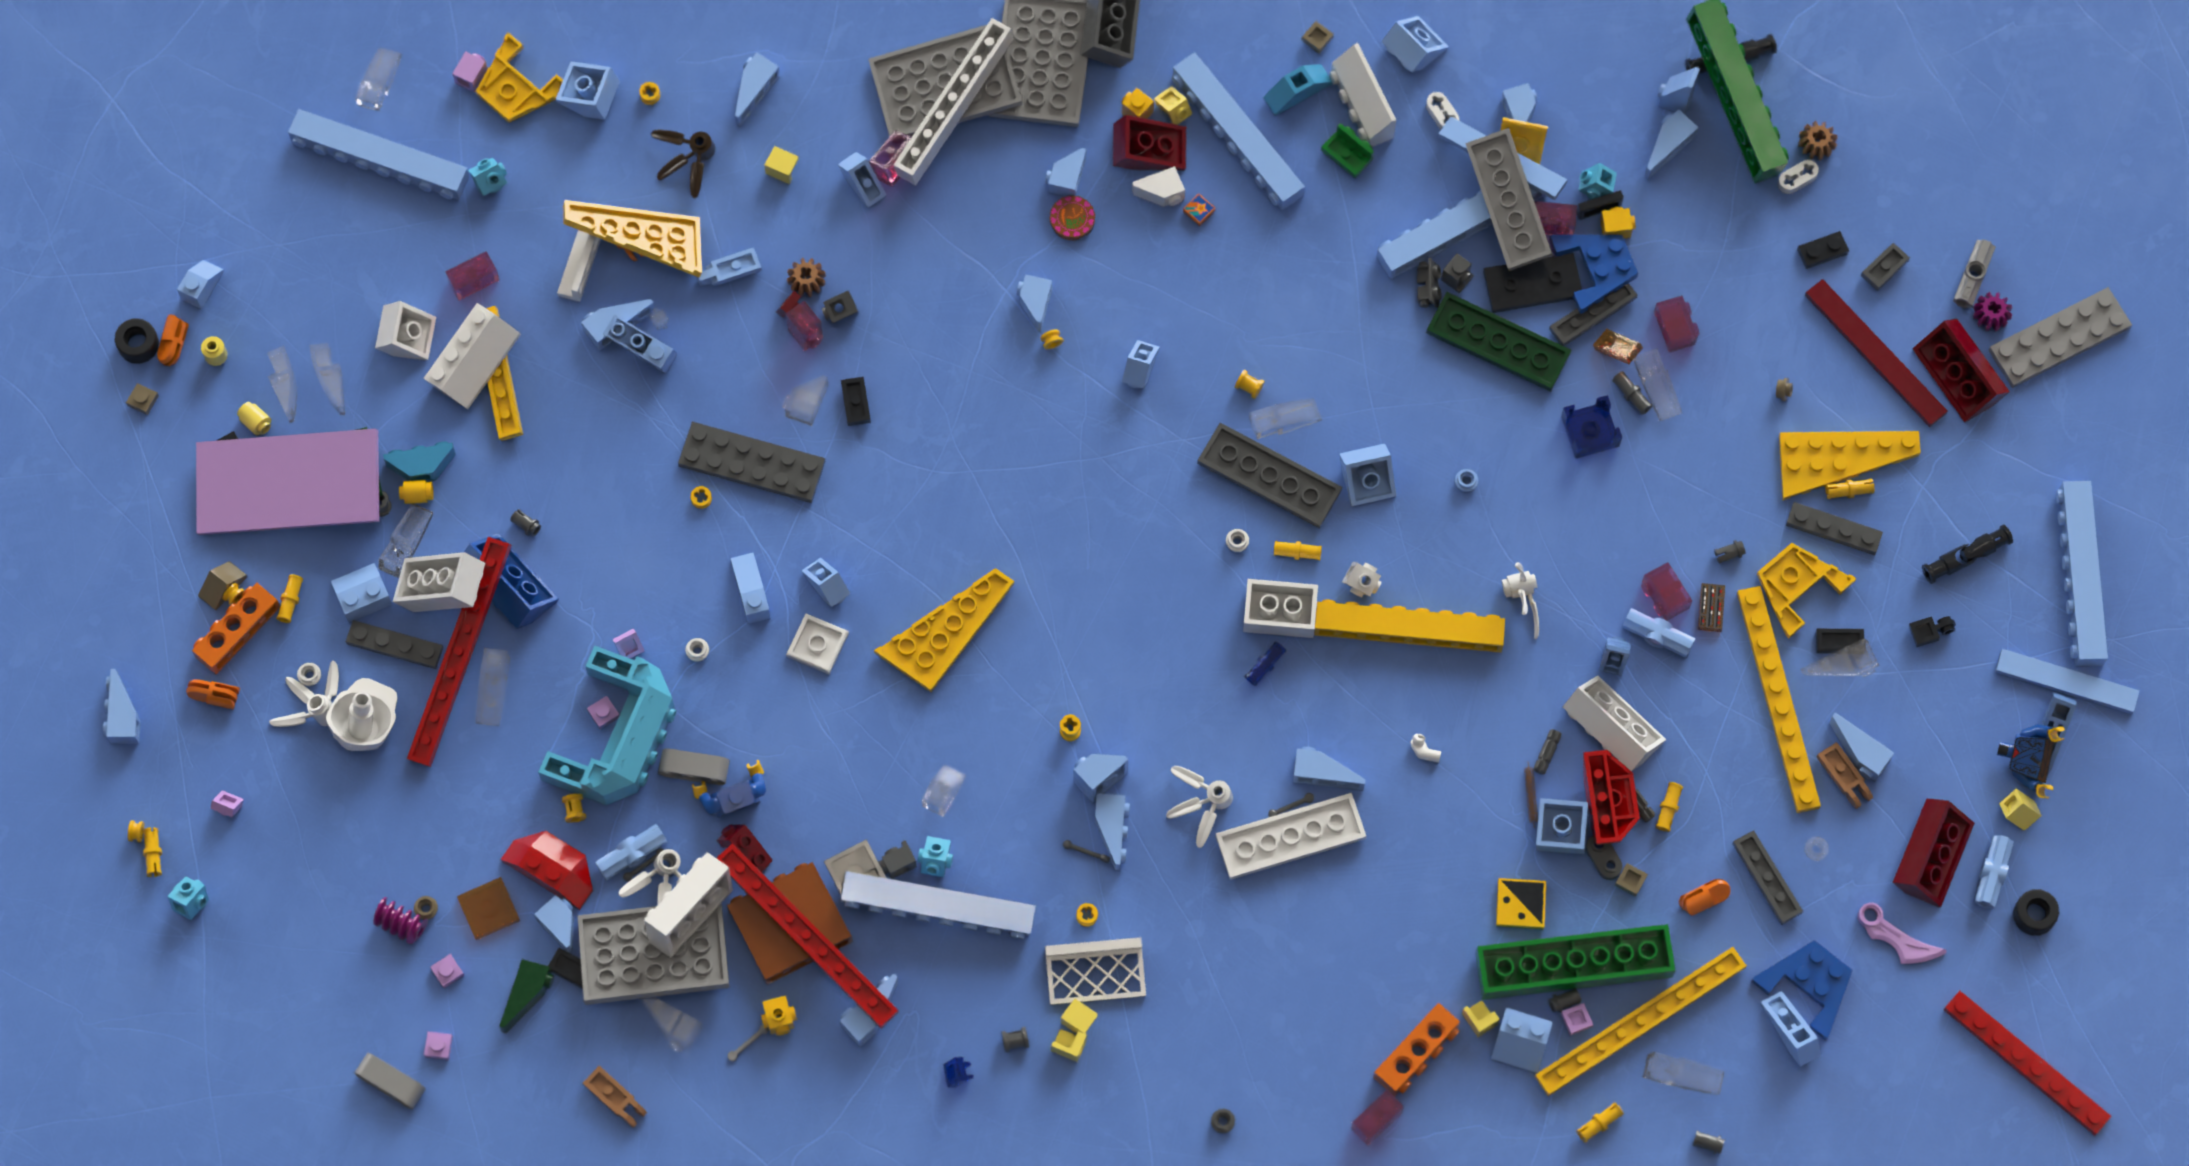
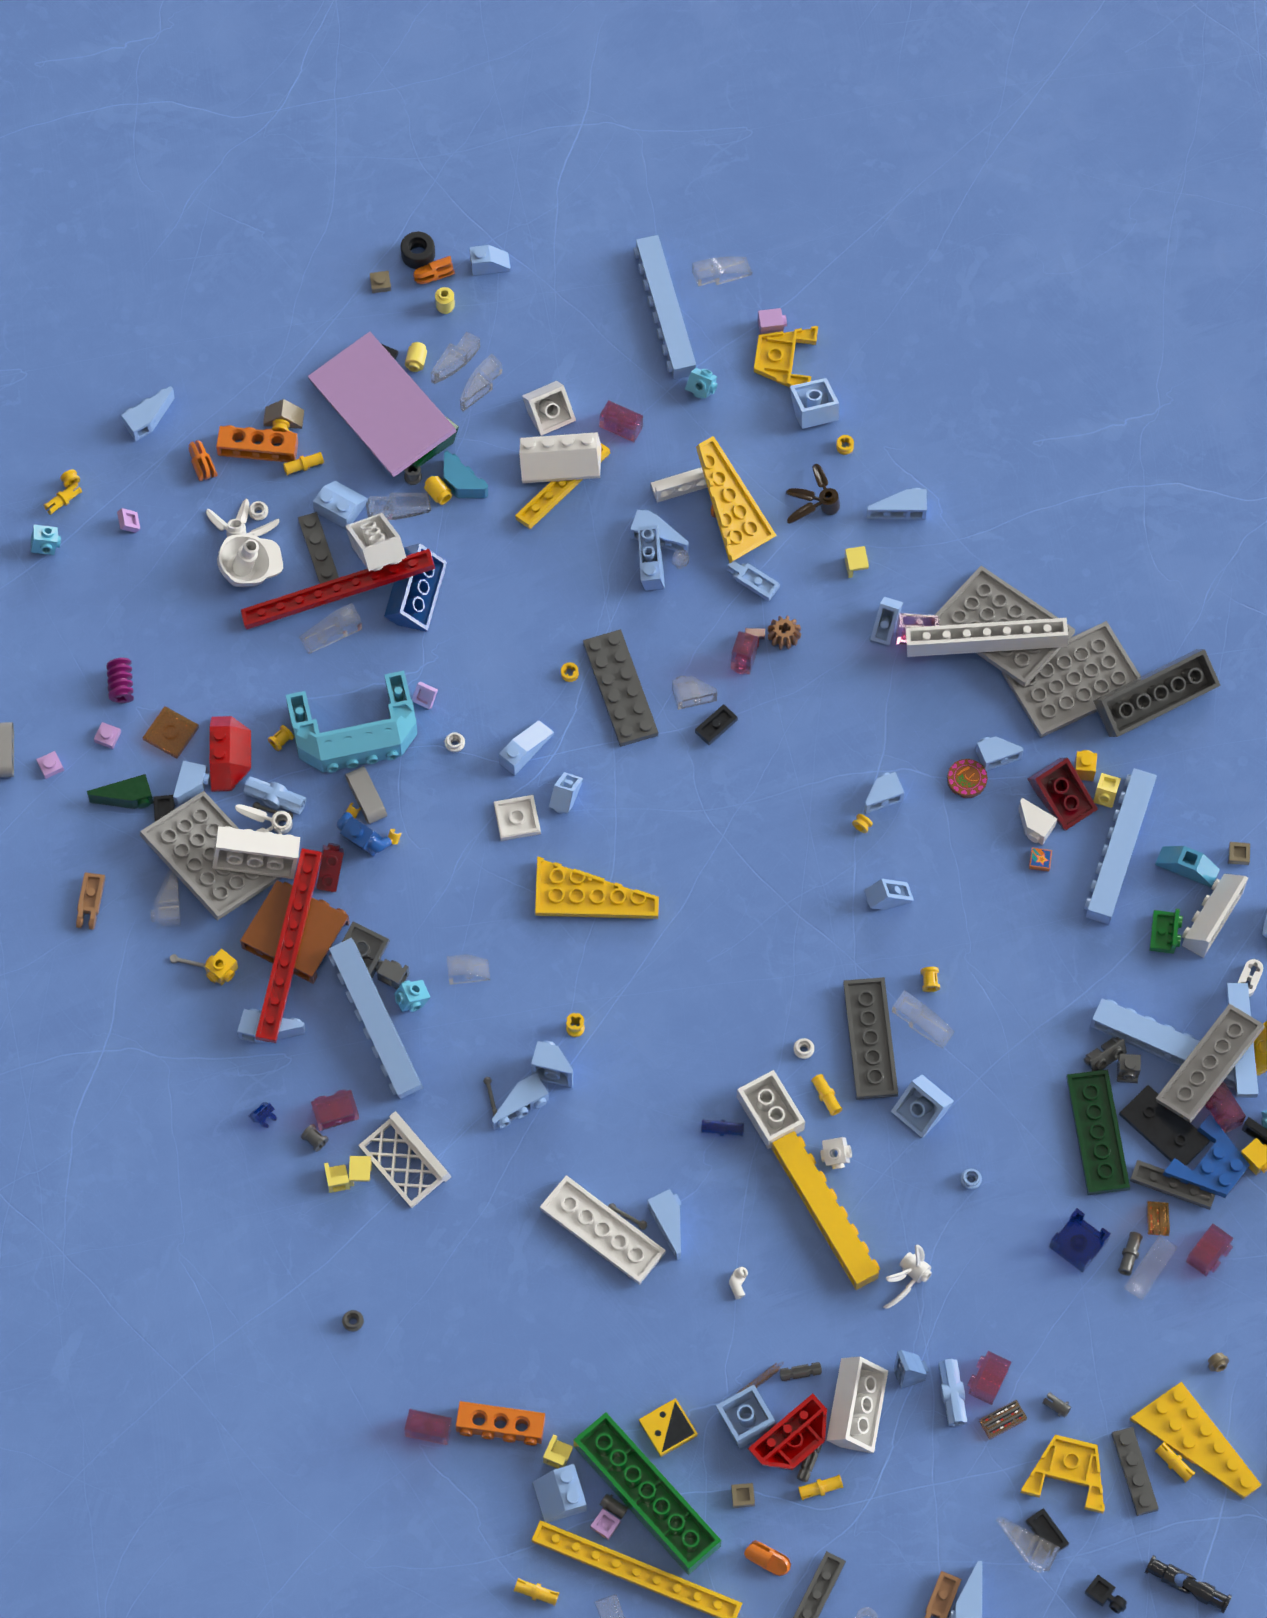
camera: 55 degrees right, 5 degrees down
(422, 901) = (142, 687): dark tan plate -> none
(526, 523) = (466, 577): dark grey pin -> none
(603, 712) = (365, 712): lavender plate -> none
(847, 302) = (786, 668): dark grey brick -> none
(1000, 1002) = (334, 1109): none -> clear pink brick
(1079, 915) = (438, 1123): yellow bush -> none
(1217, 801) = (594, 1155): white plant -> none
(1601, 857) = (747, 1464): dark grey plate -> none
(1778, 699) = (966, 1516): yellow plate -> none

